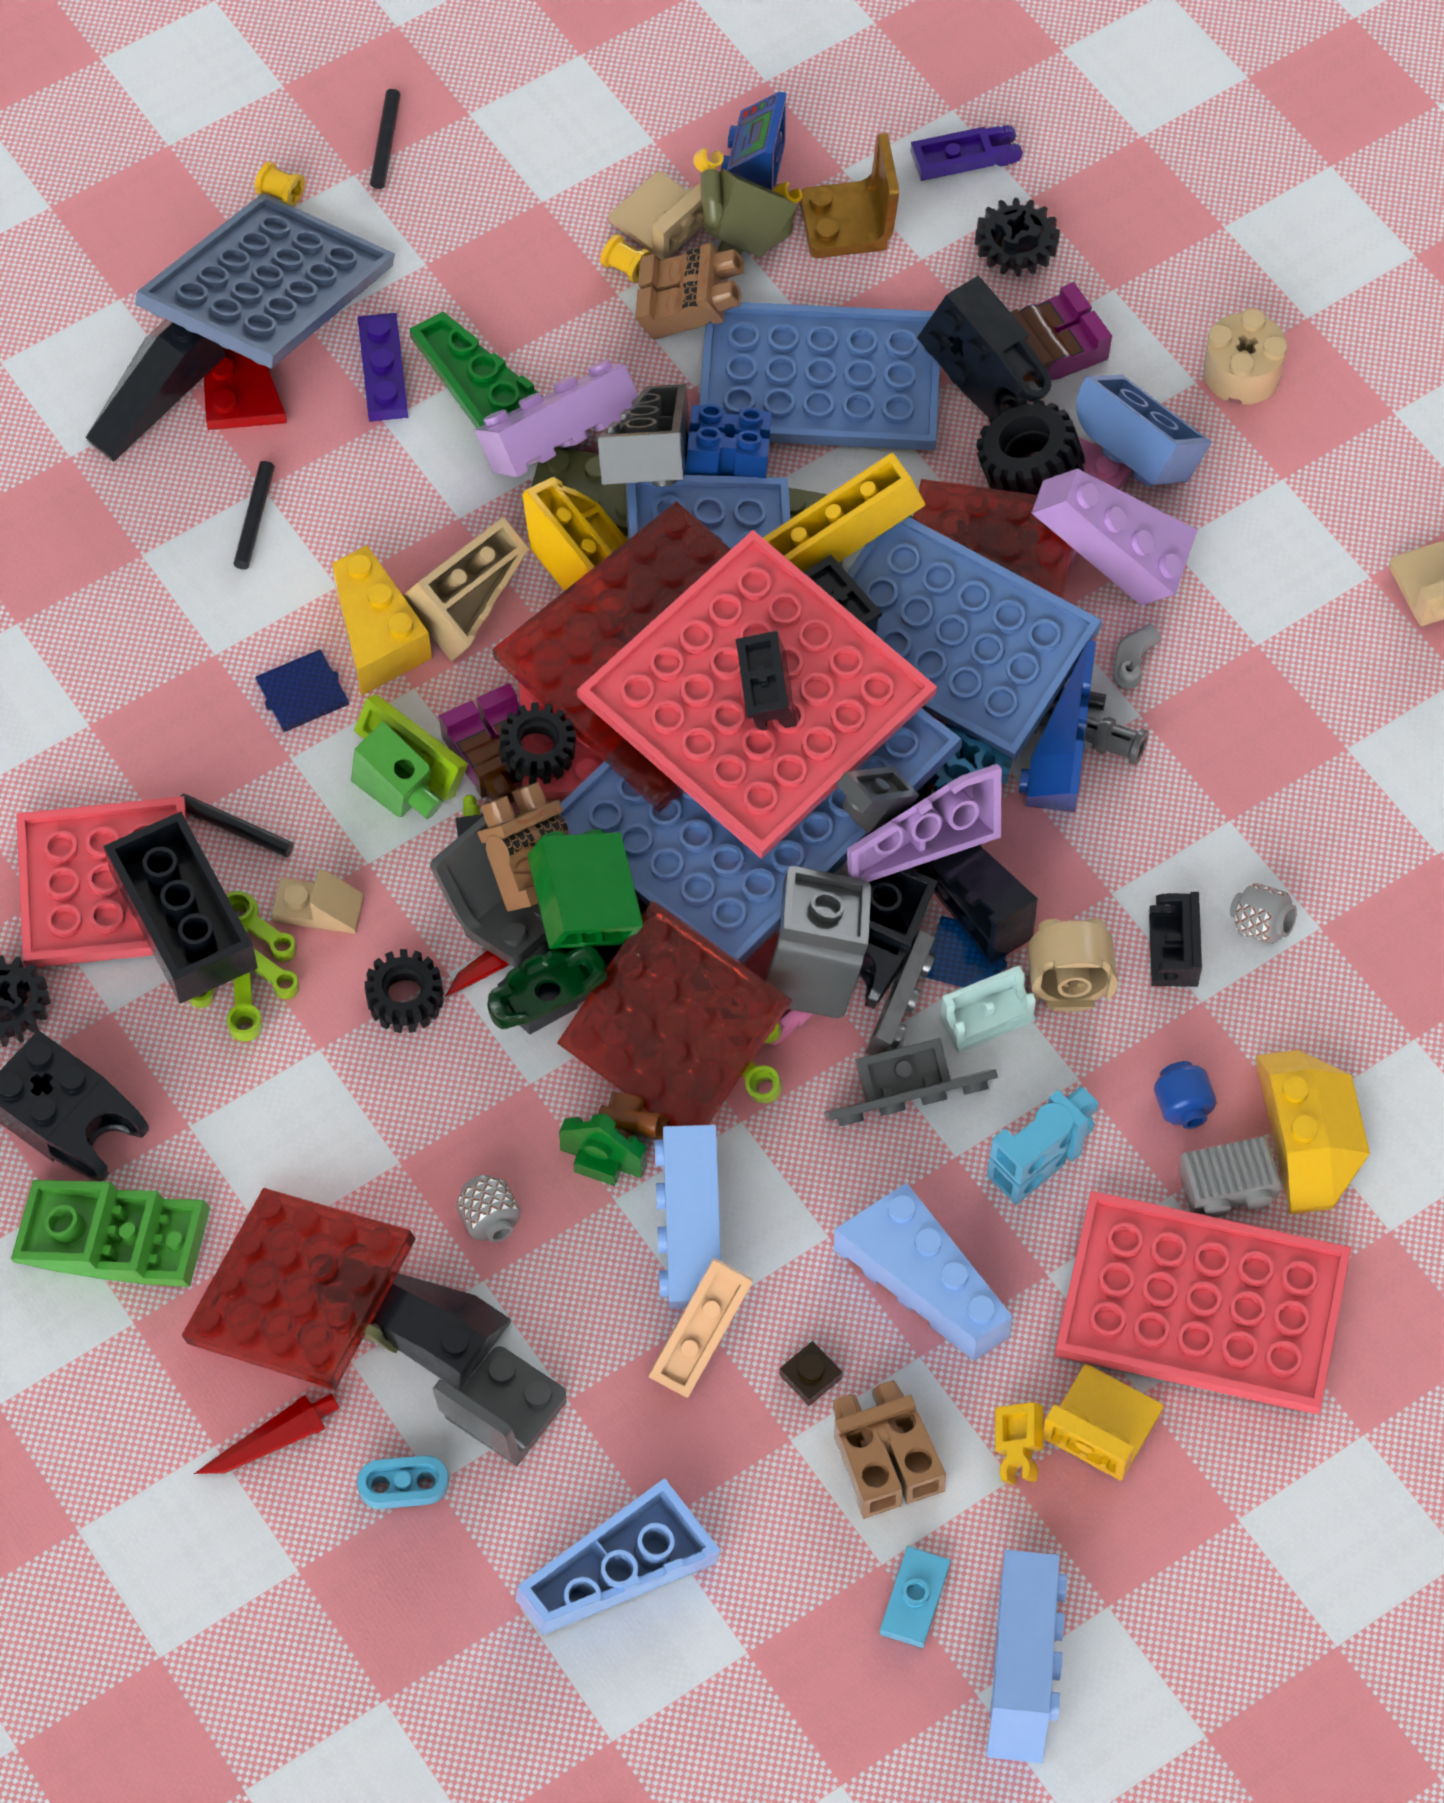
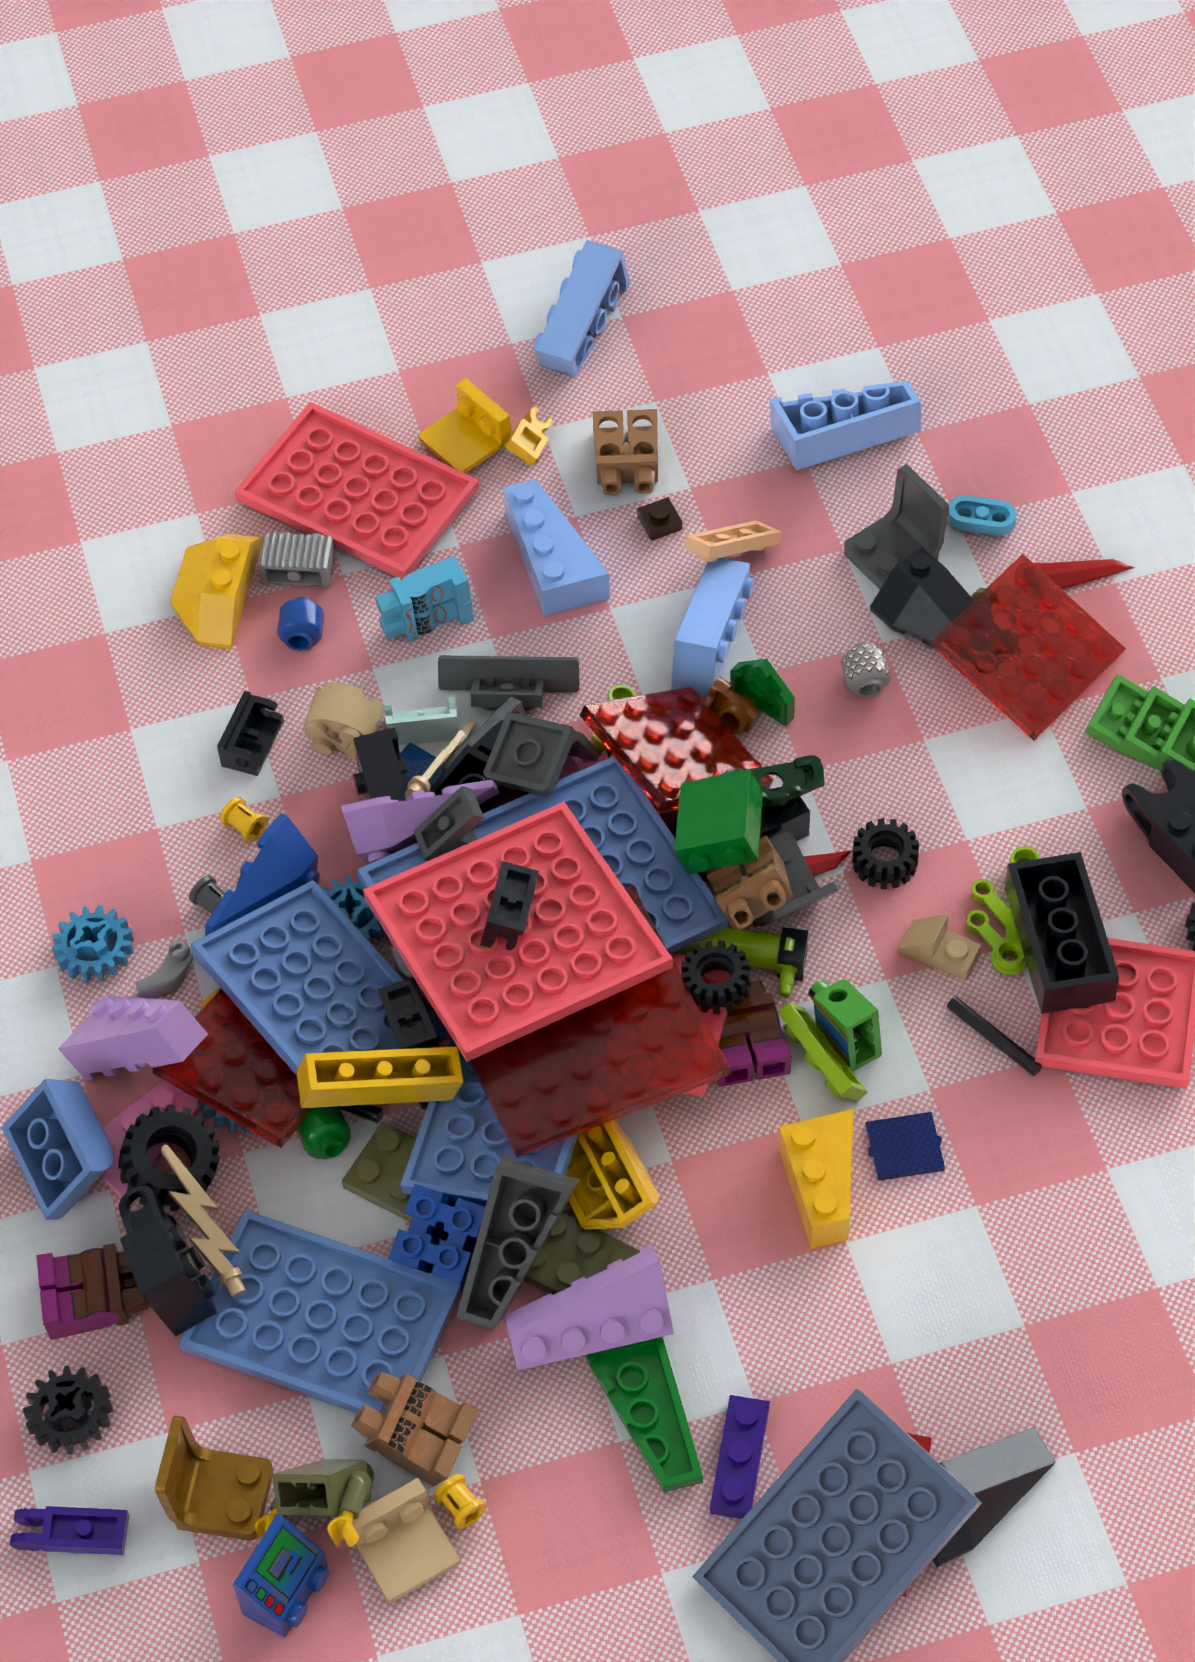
camera: 160 degrees left, 5 degrees down
(254, 515) = (907, 1330): black bar -> none
(463, 588) = (728, 1178): tan wedge -> none
(915, 1597) = (641, 372): medium azure plate -> none
(938, 924) = (422, 782): none -> tan piece
(946, 385) = (216, 1240): none -> tan piece
(1133, 838) = (244, 819): none -> yellow bush
(1224, 658) = (90, 944): none -> dark azure gear
(1263, 913) = (172, 732): light grey head -> none

